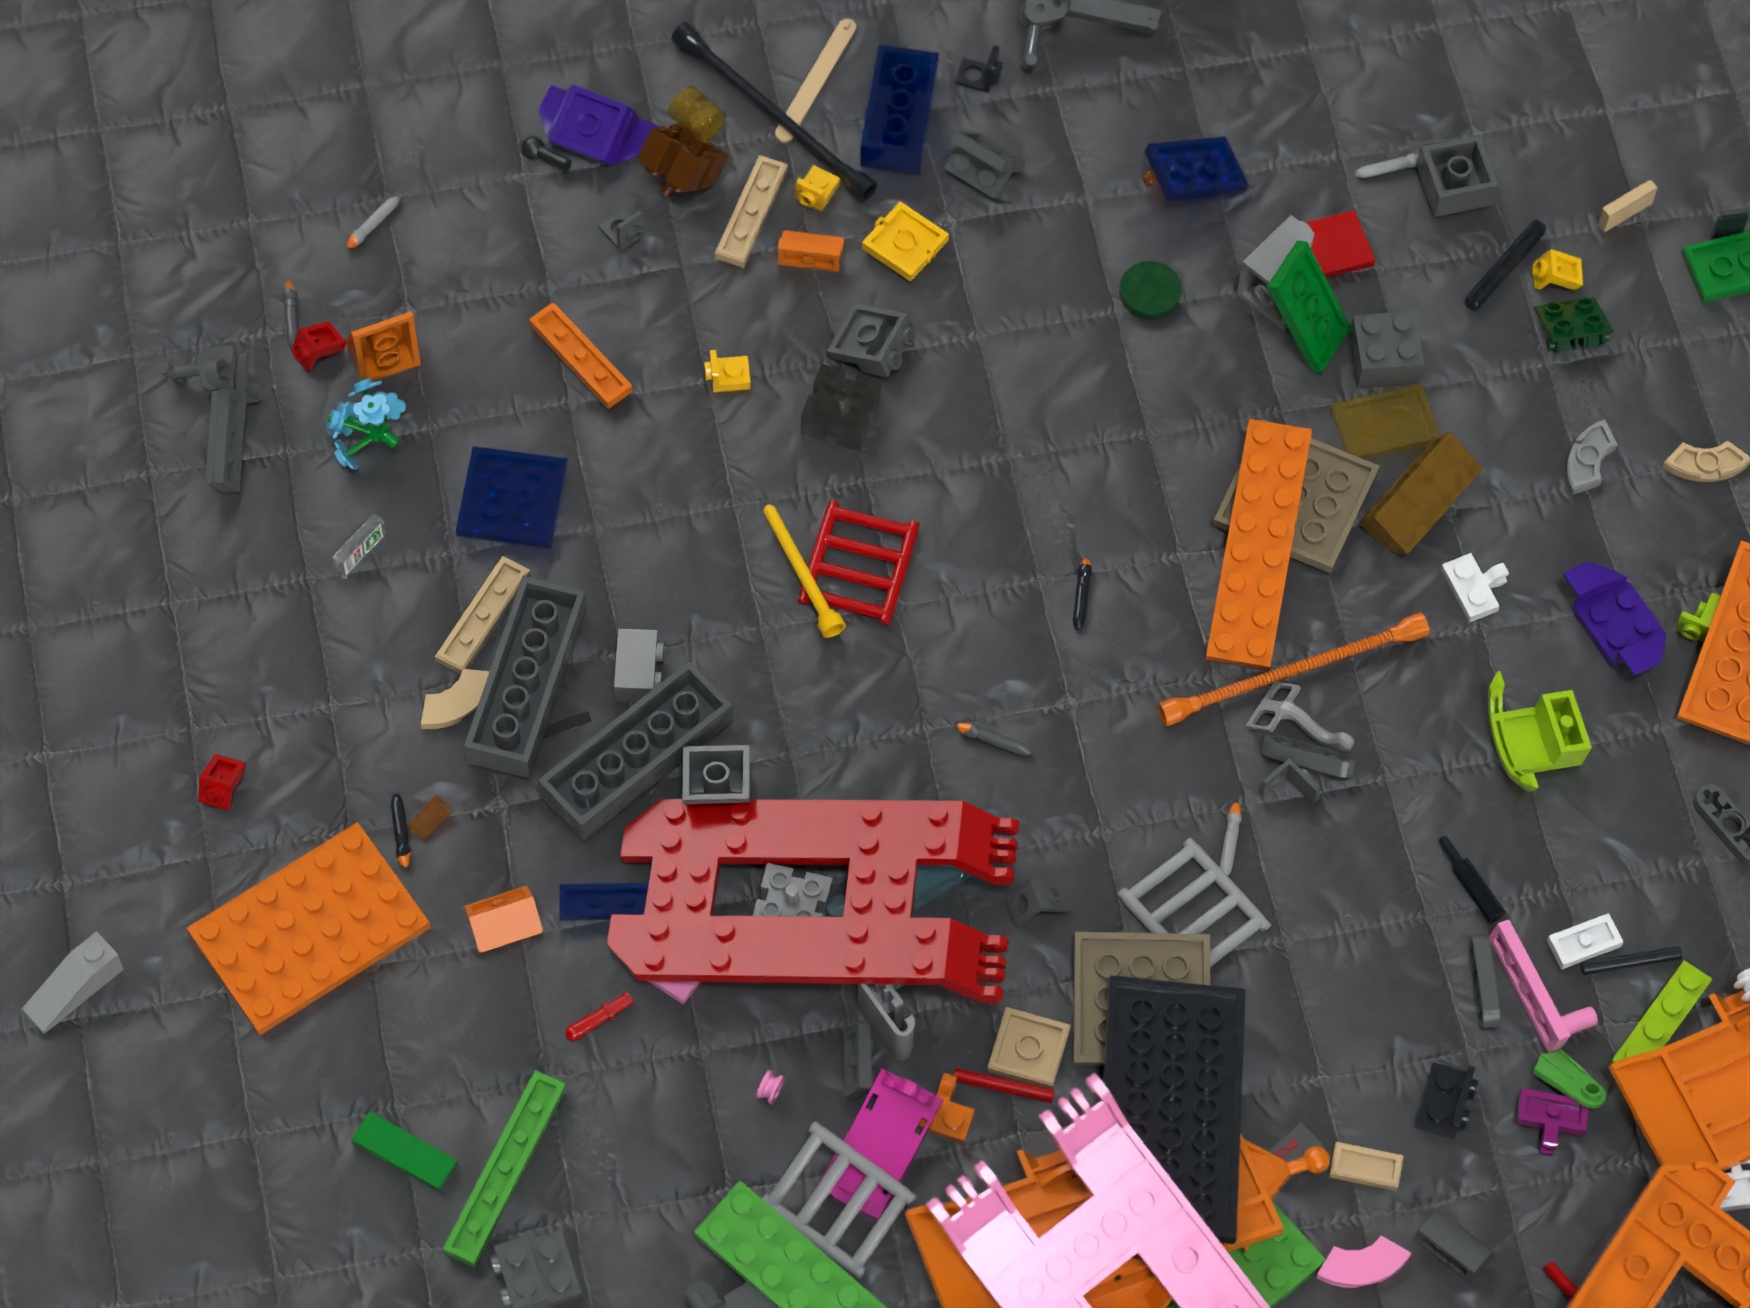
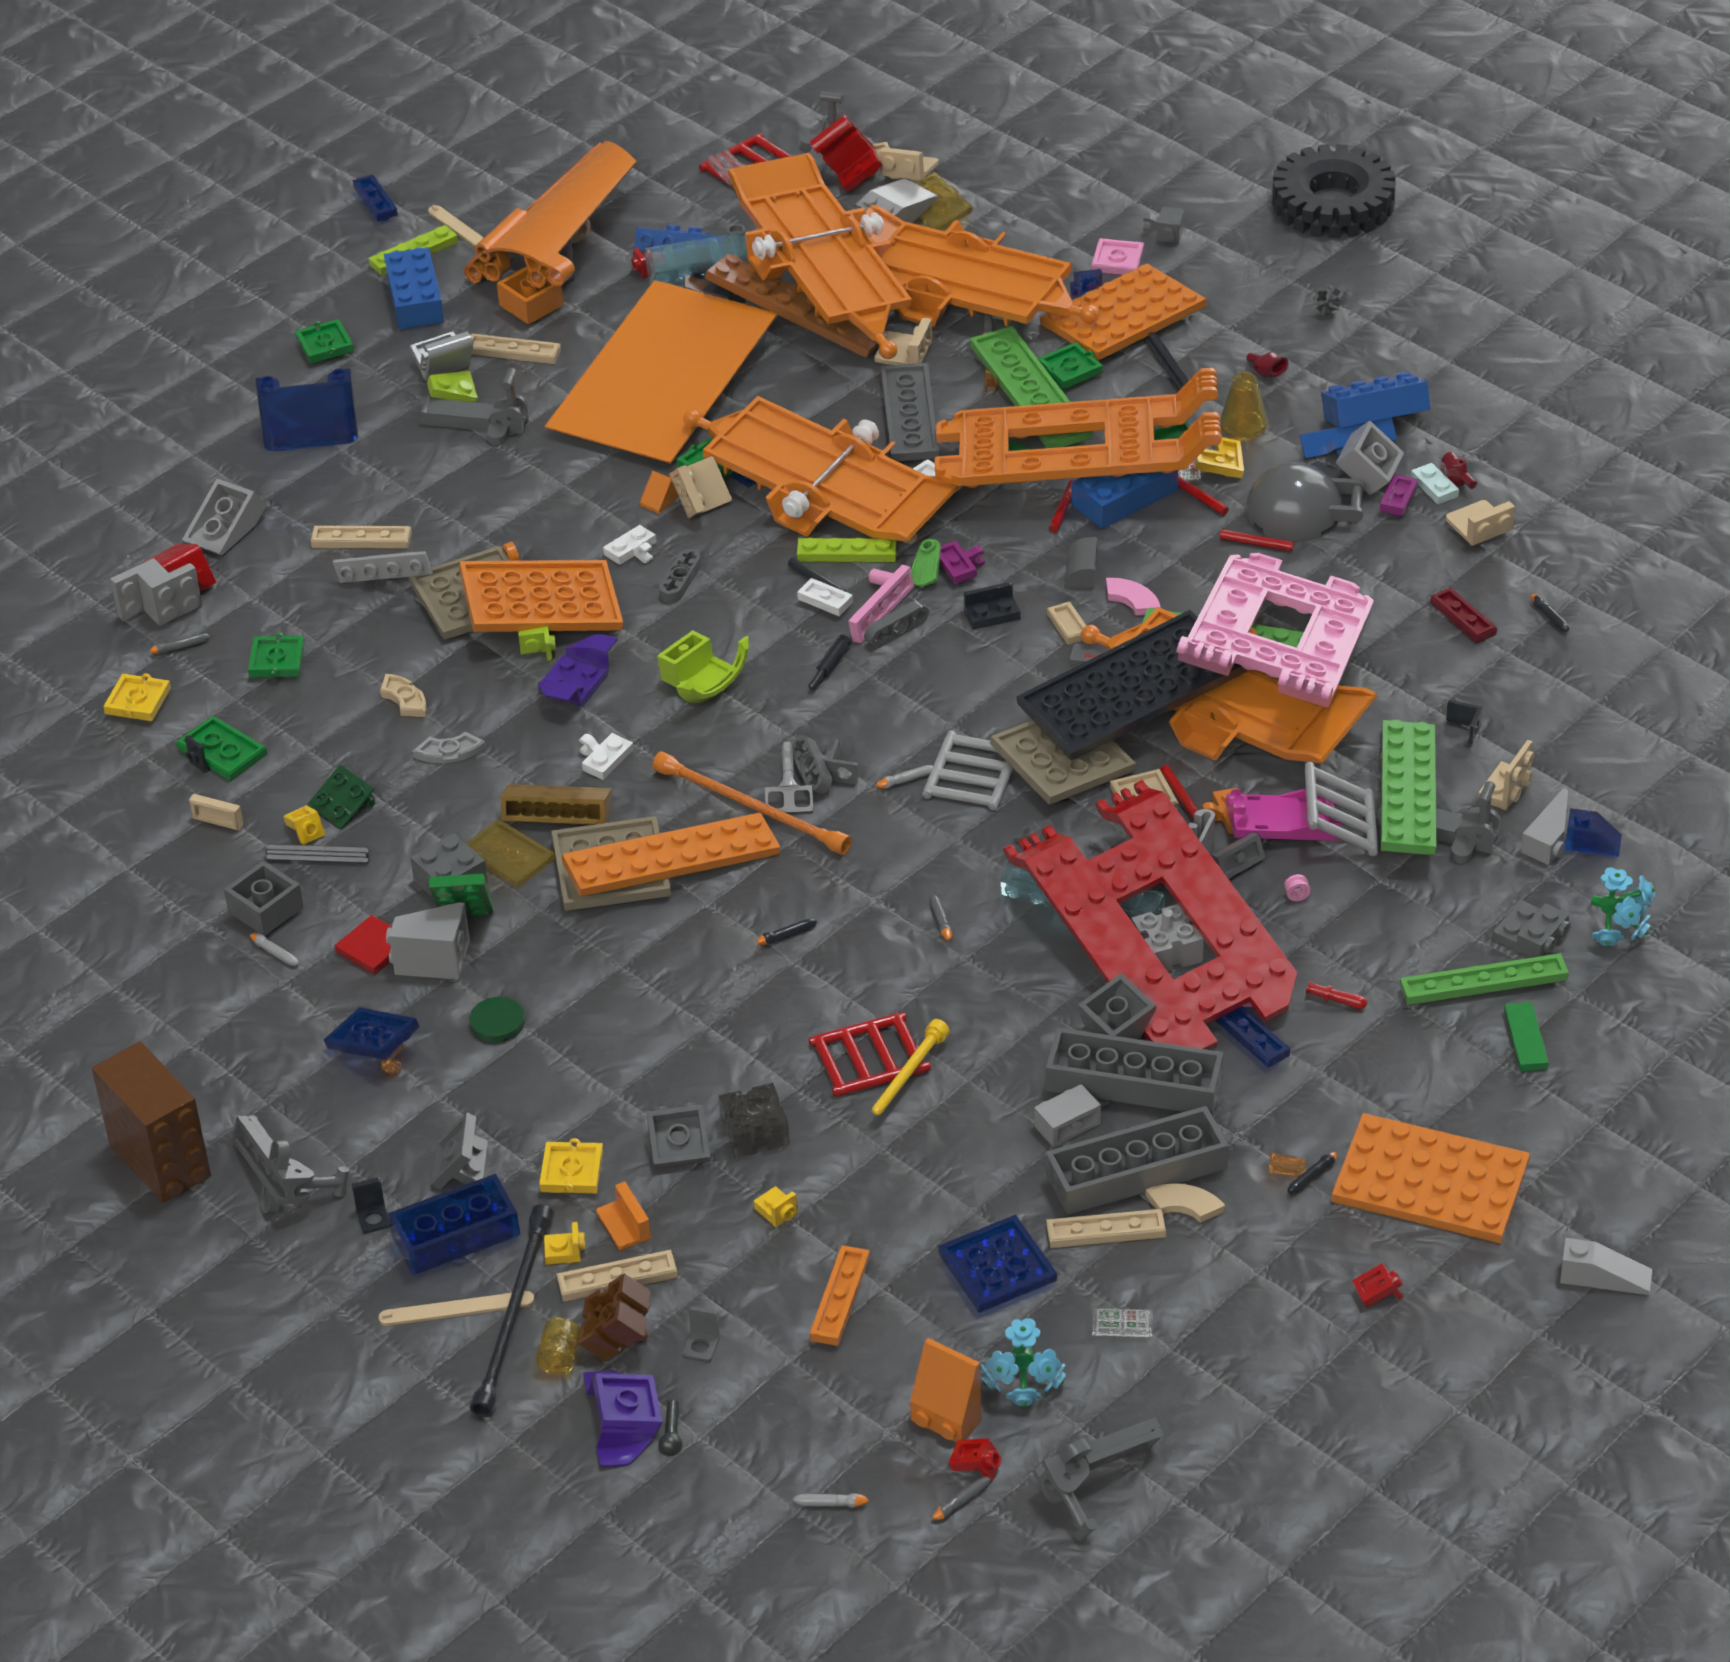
camera: 120 degrees left, 20 degrees down
(503, 918) = (1317, 1081): orange panel -> none

